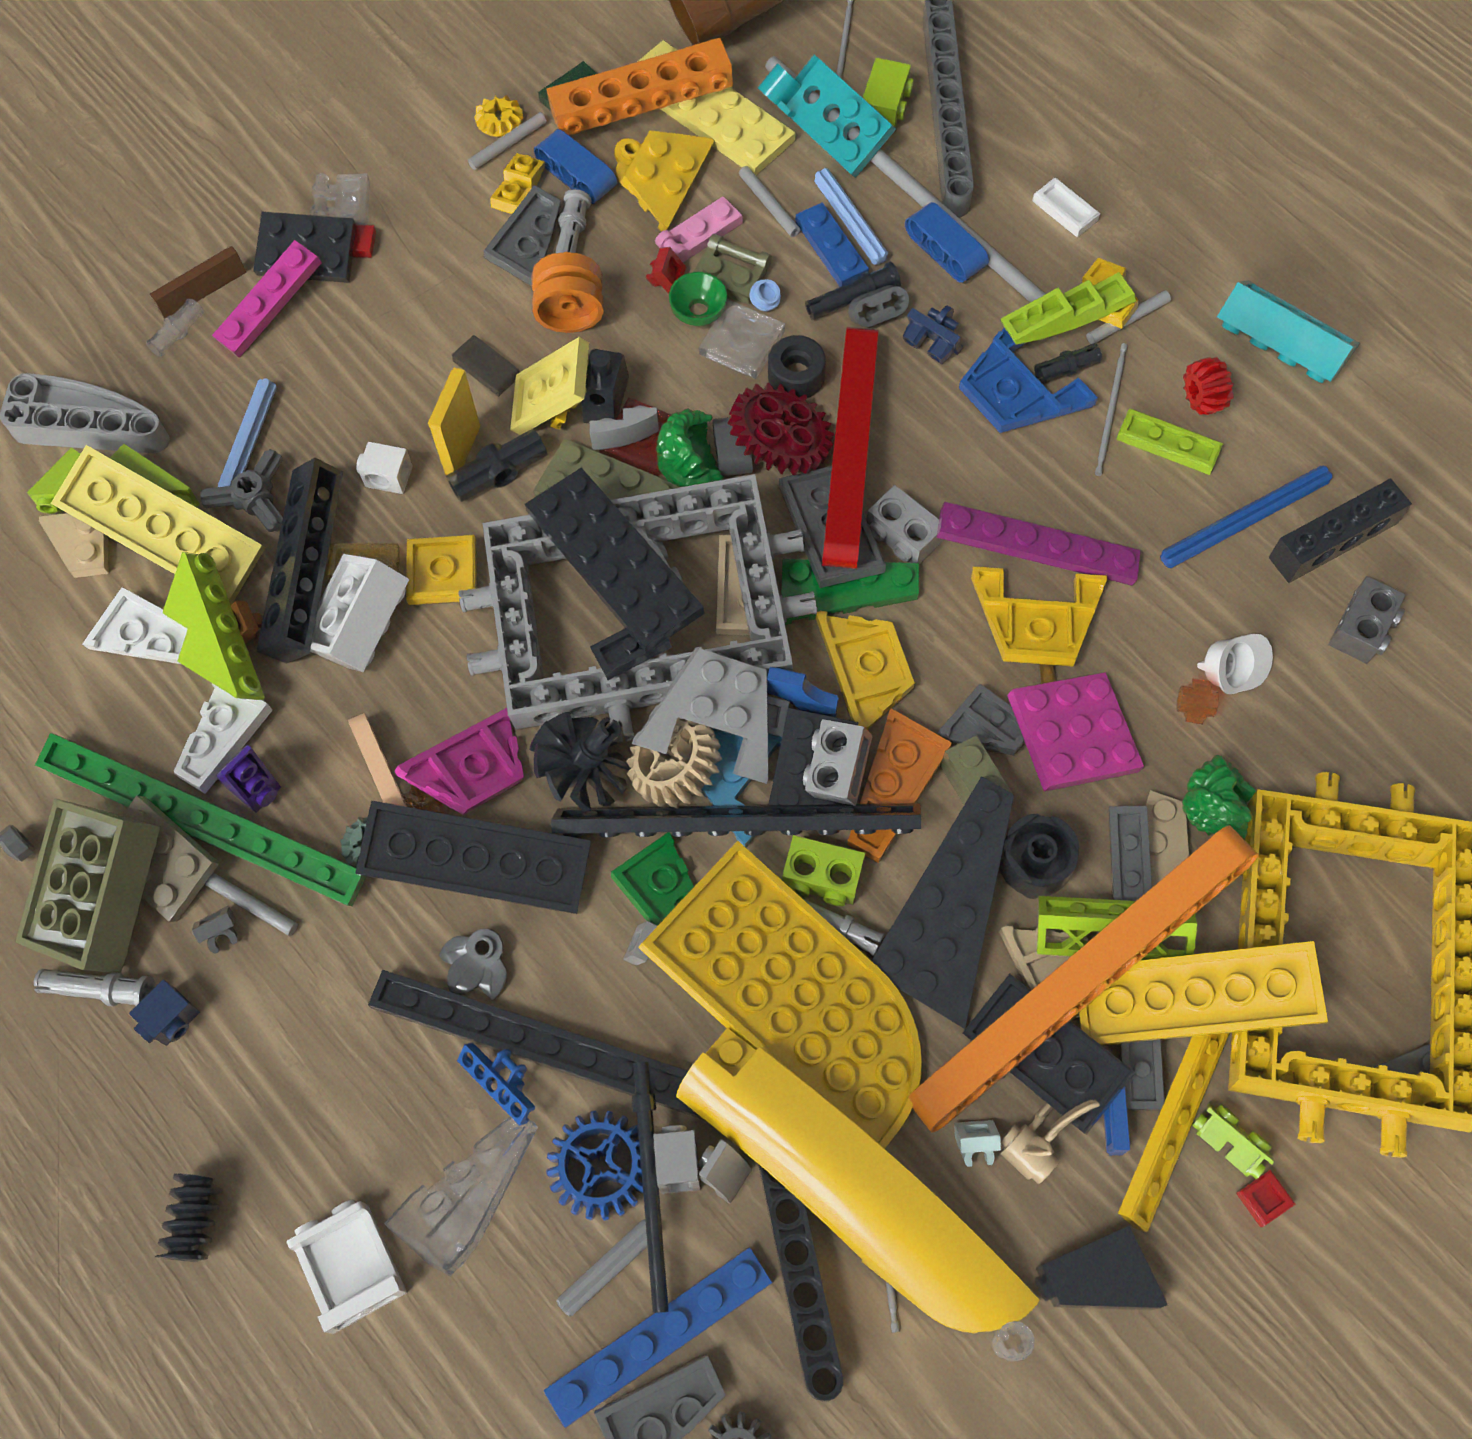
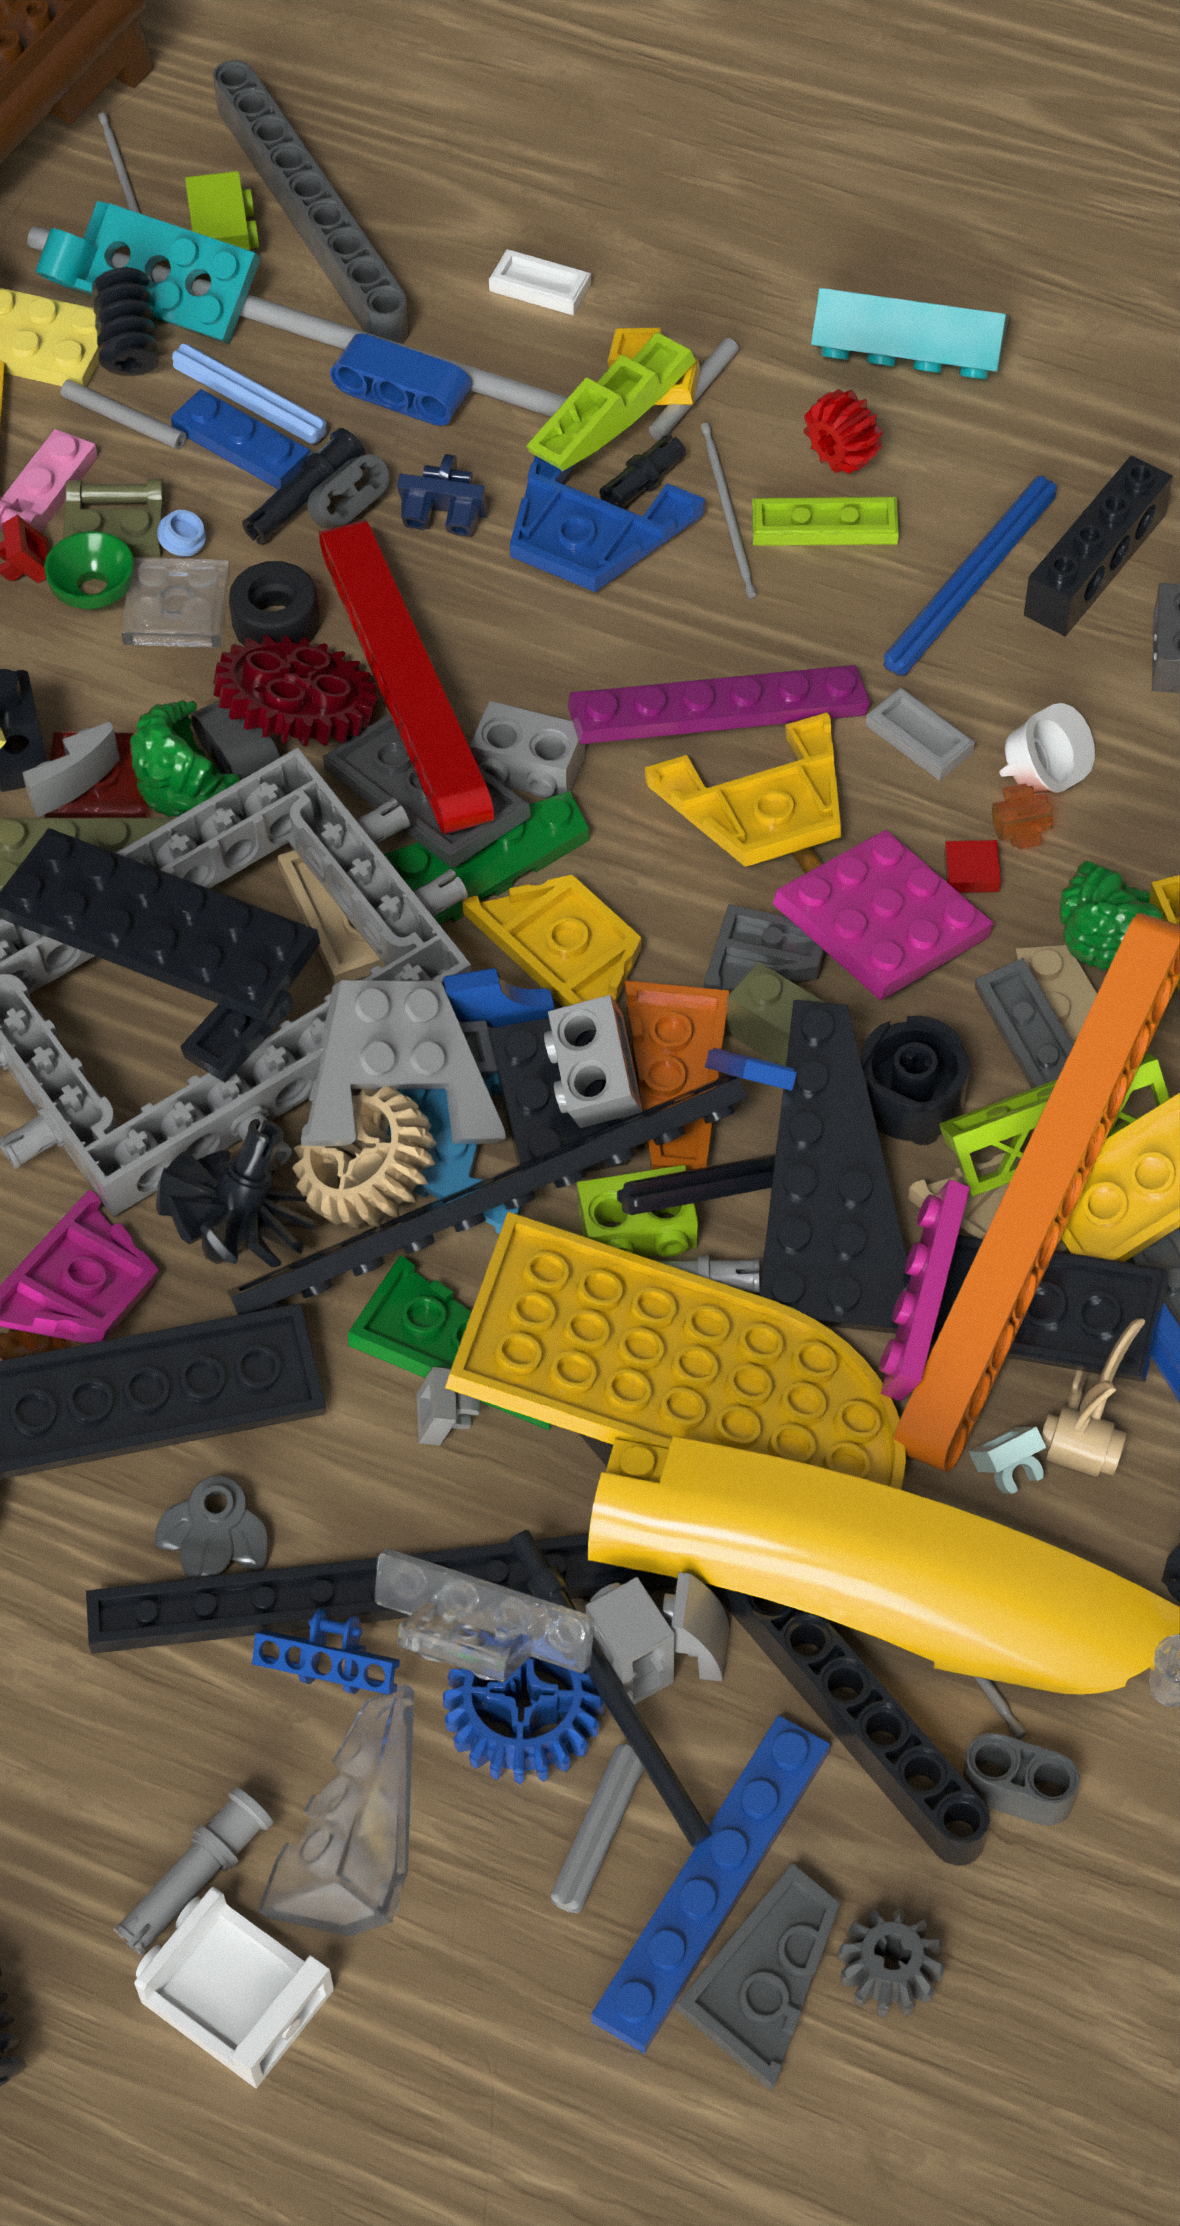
camera: 25 degrees left, 10 degrees down
(376, 1172) = (212, 1849): none -> light grey pin
(586, 1110) = (477, 1621): none -> clear bracket
(794, 141) = (124, 322): none -> black piece
(863, 872) = (697, 1185): none -> black axle
(881, 1361) = (1023, 1768): none -> dark grey beam
(934, 808) = (751, 1068): none -> blue tile
(966, 1016) = (919, 1305): none -> dark pink plate
(1150, 720) = (972, 866): none -> red tile
(1160, 613) = (920, 733): none -> light grey tile

